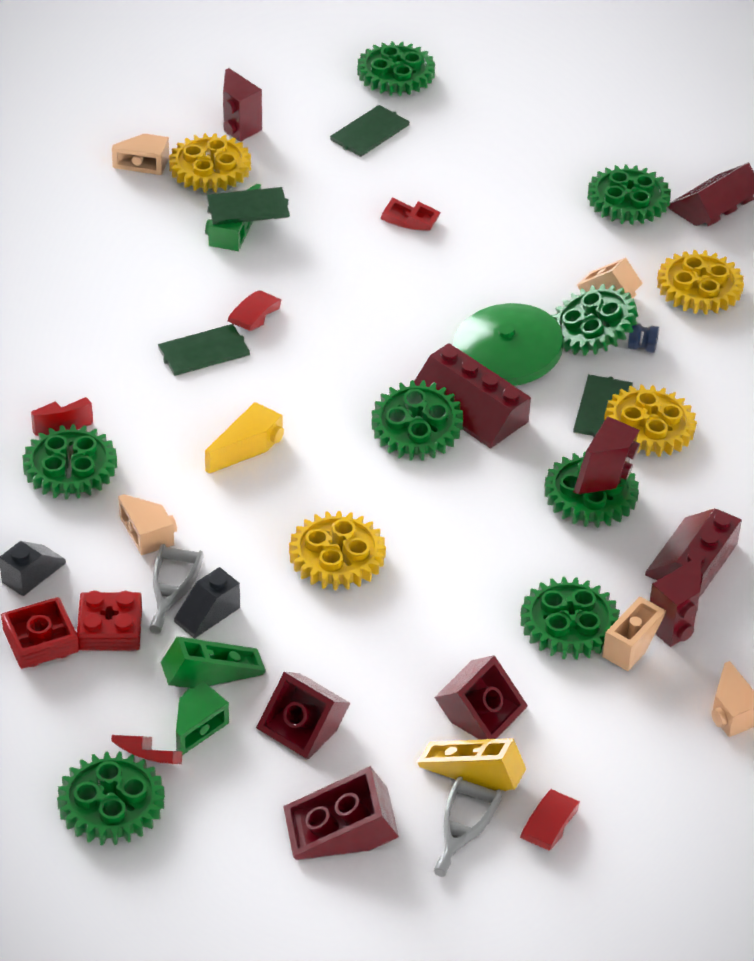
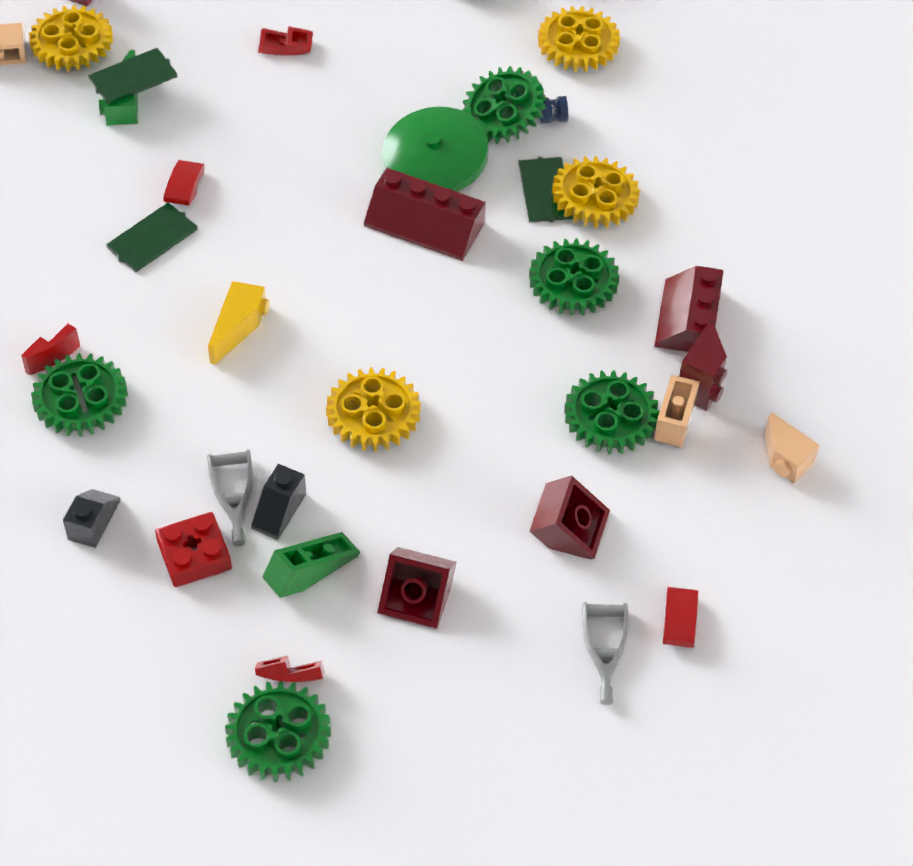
camera: 20 degrees left, 10 degrees up
(40, 632) = (139, 567): red brick -> none
(146, 523) = (183, 437): light nougat slope -> none
(199, 716) = (322, 619): green slope -> none
(342, 817) = (497, 679): dark red slope -> none
(417, 420) = (387, 253): green gear -> none
(482, 762) = (596, 582): yellow slope -> none
(608, 457) = (588, 244): dark red slope -> none
(617, 273) = (501, 54): light nougat slope -> none

